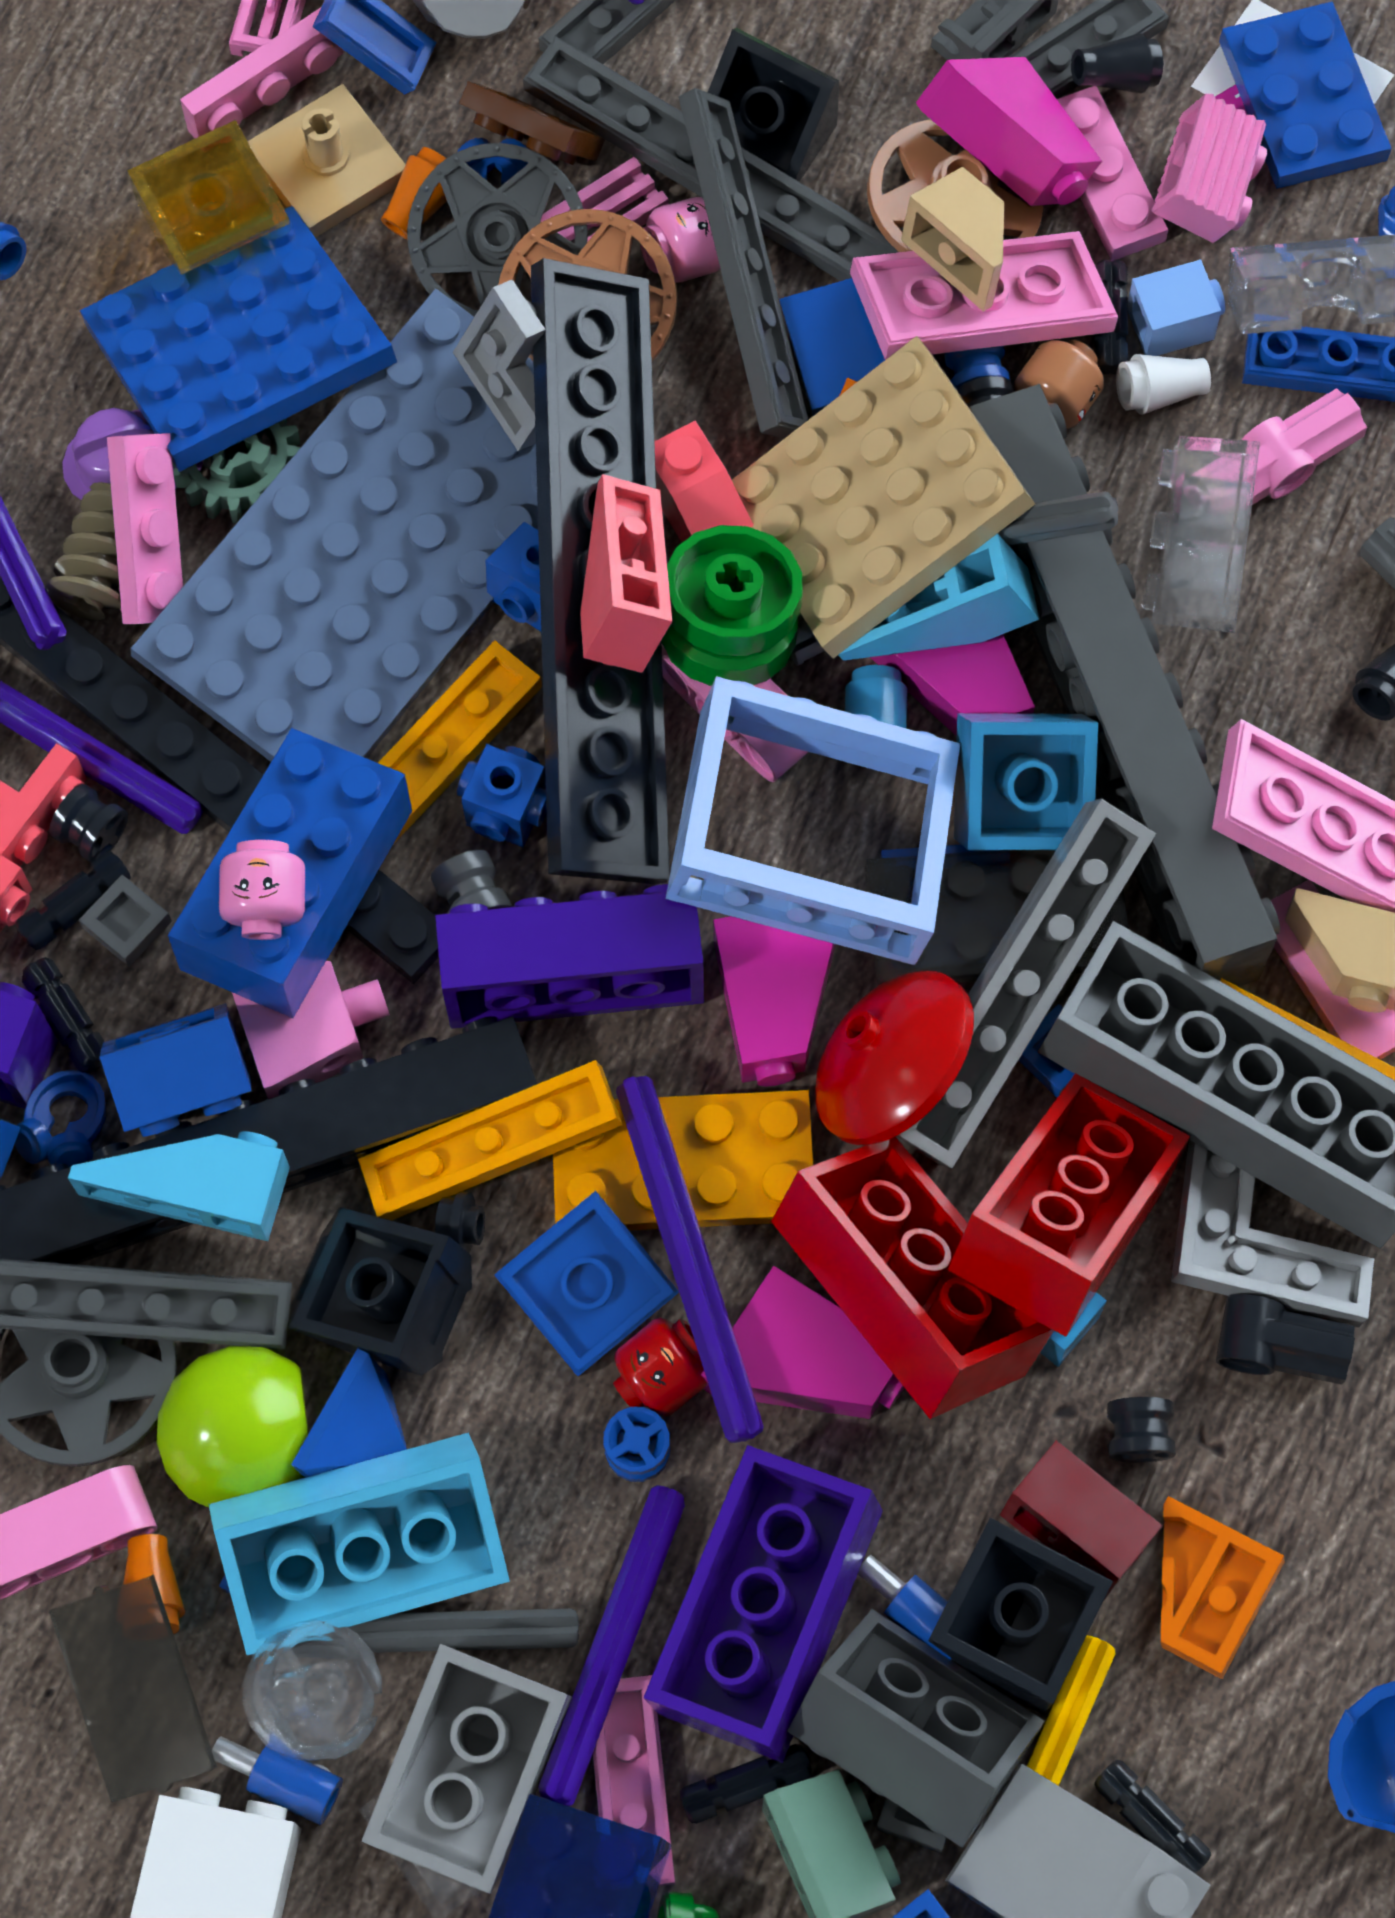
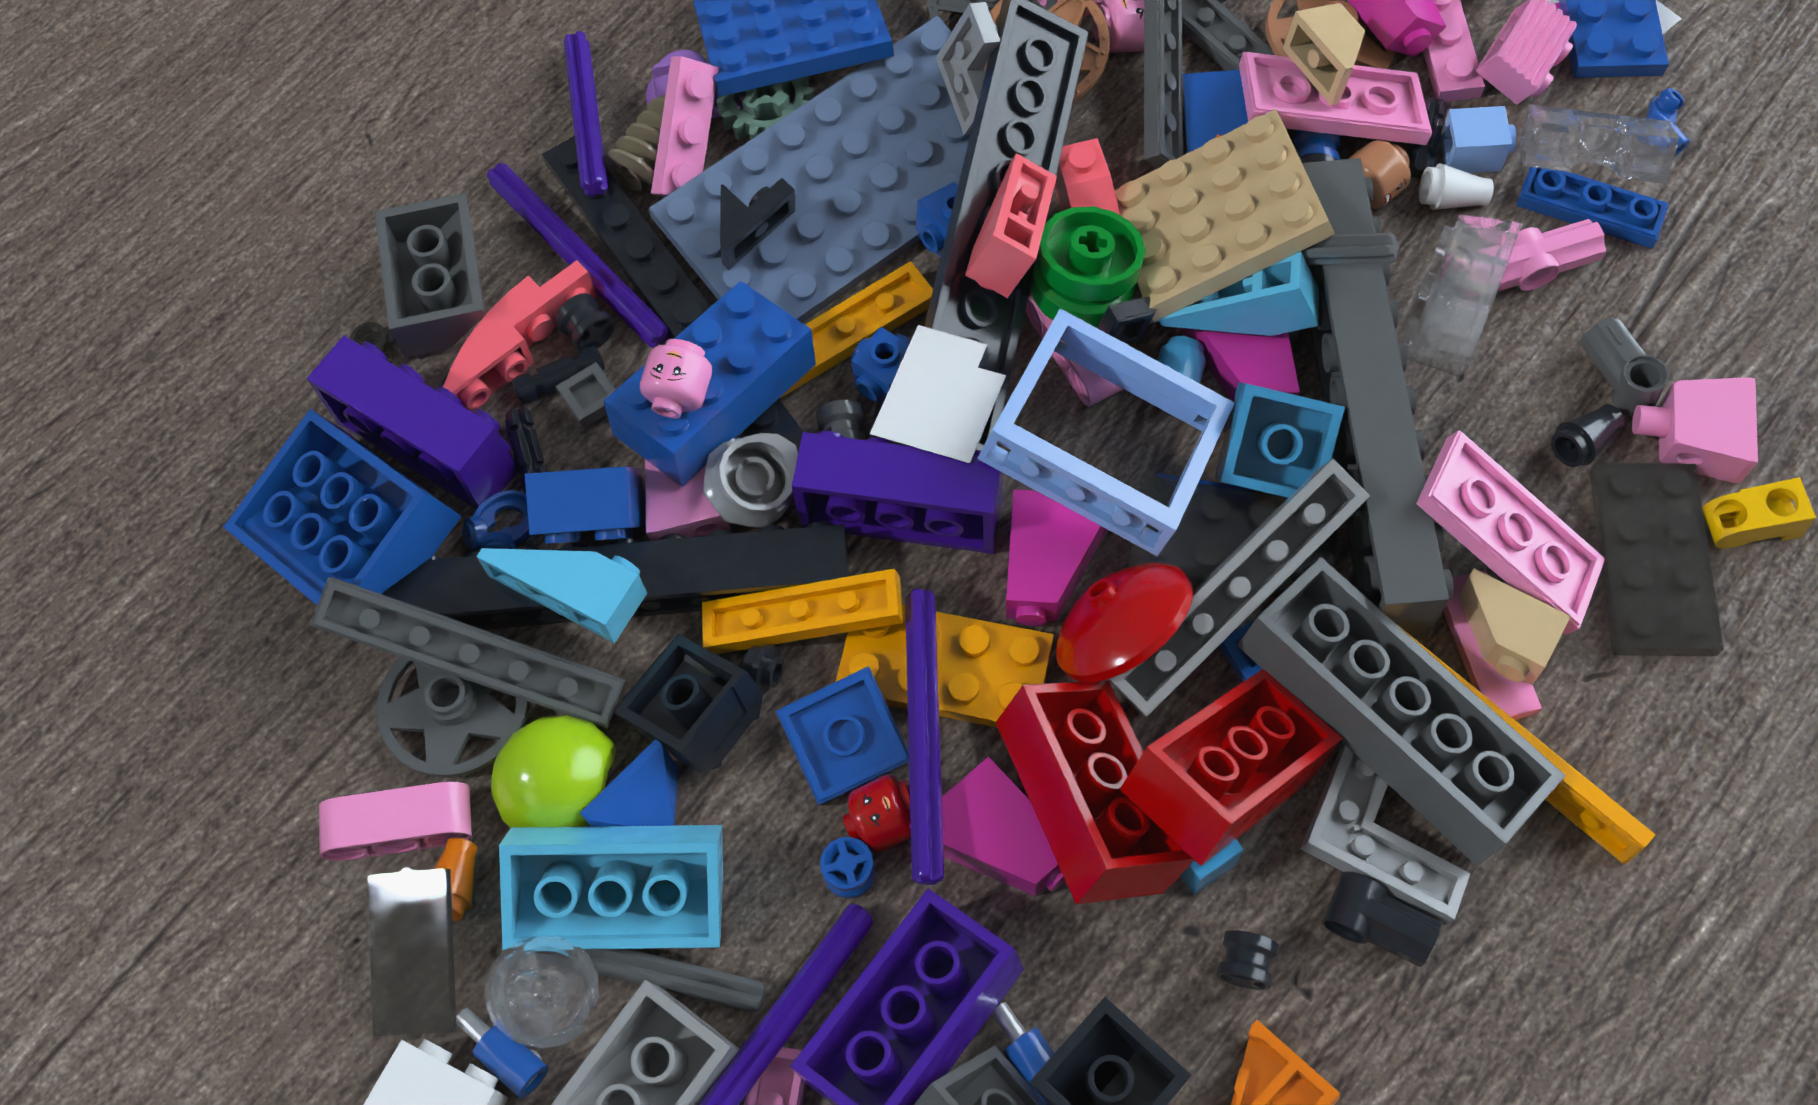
camera: 20 degrees right, 5 degrees down
(269, 650) = (746, 226): none -> black slope
(380, 985) = (751, 479): none -> light grey hat
(594, 824) = (939, 396): none -> white sticker
(798, 666) = (1127, 320): none -> black tile
(1080, 1515) = (1181, 1016): dark red hinge -> none

